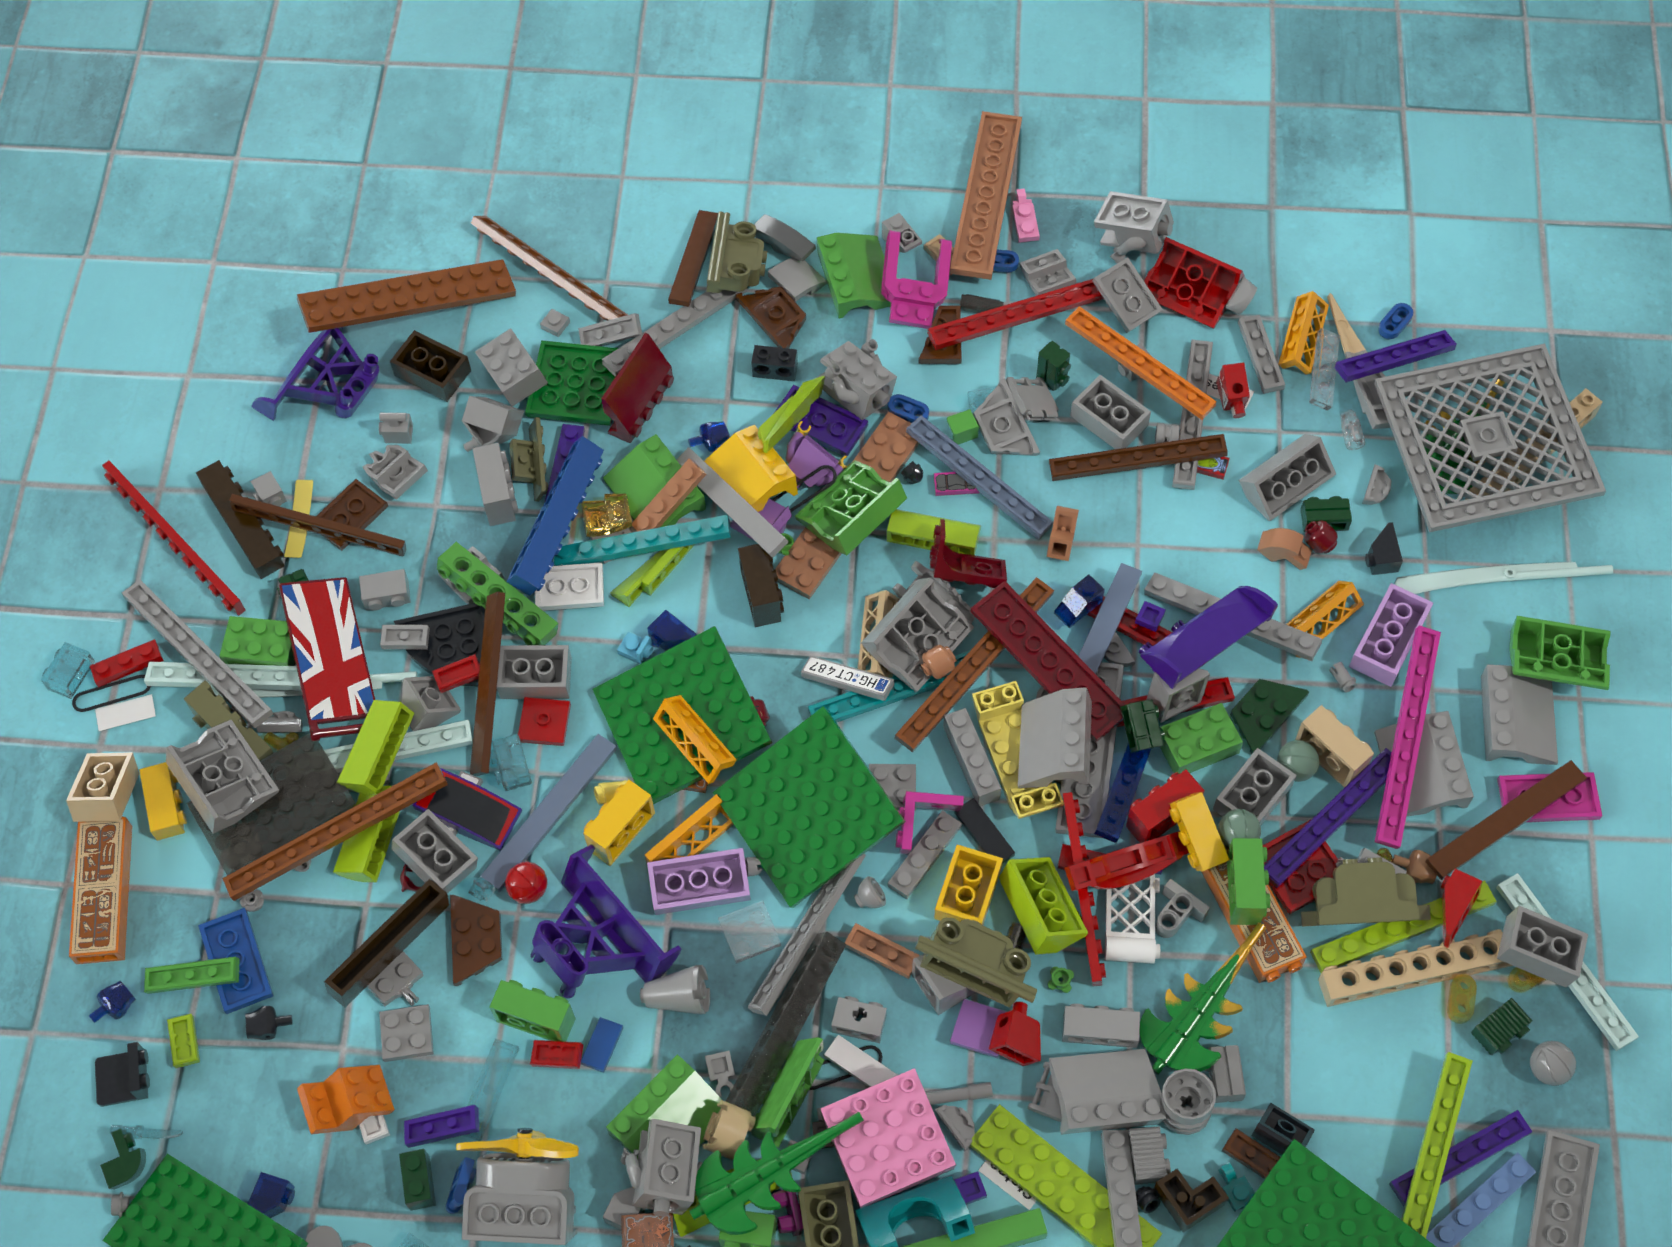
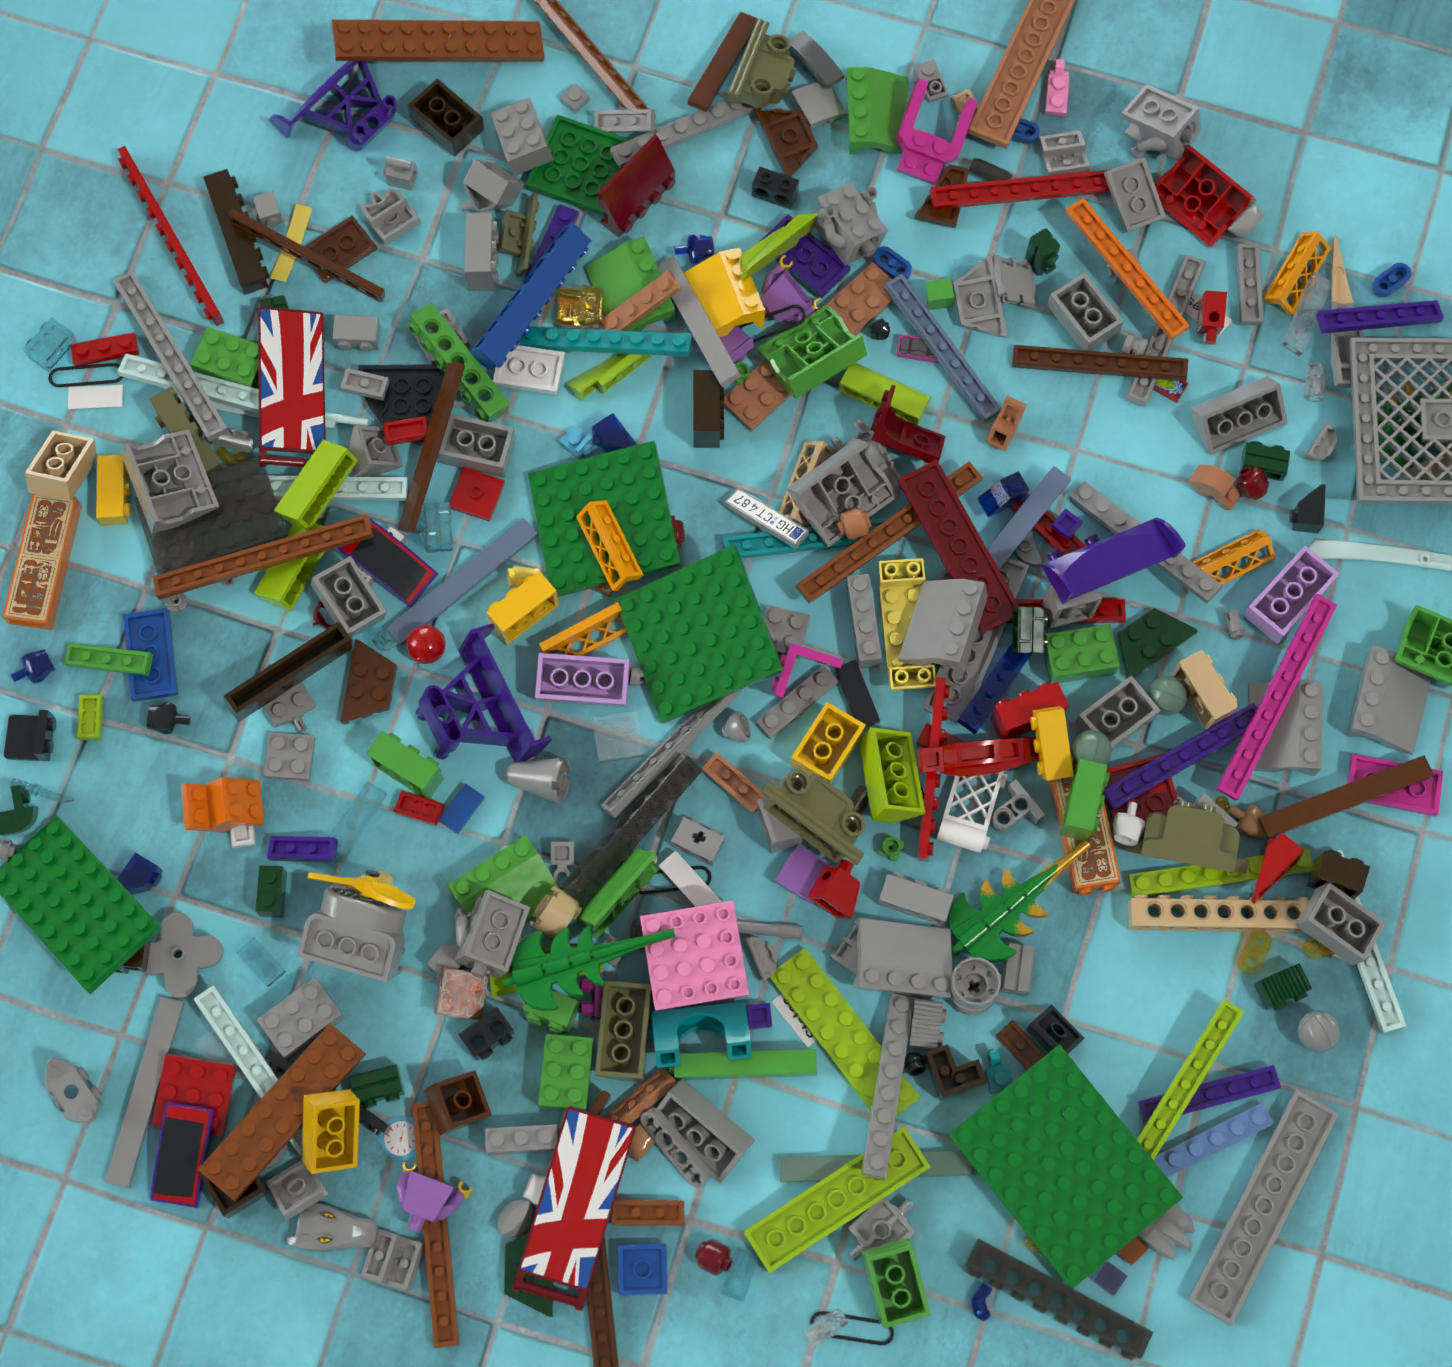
camera: 10 degrees right, 10 degrees up
(462, 1179) = (310, 901): blue plate -> none
(1298, 900) = (1127, 826): none -> white piece
(1533, 893) = (1343, 873): none -> dark brown brick

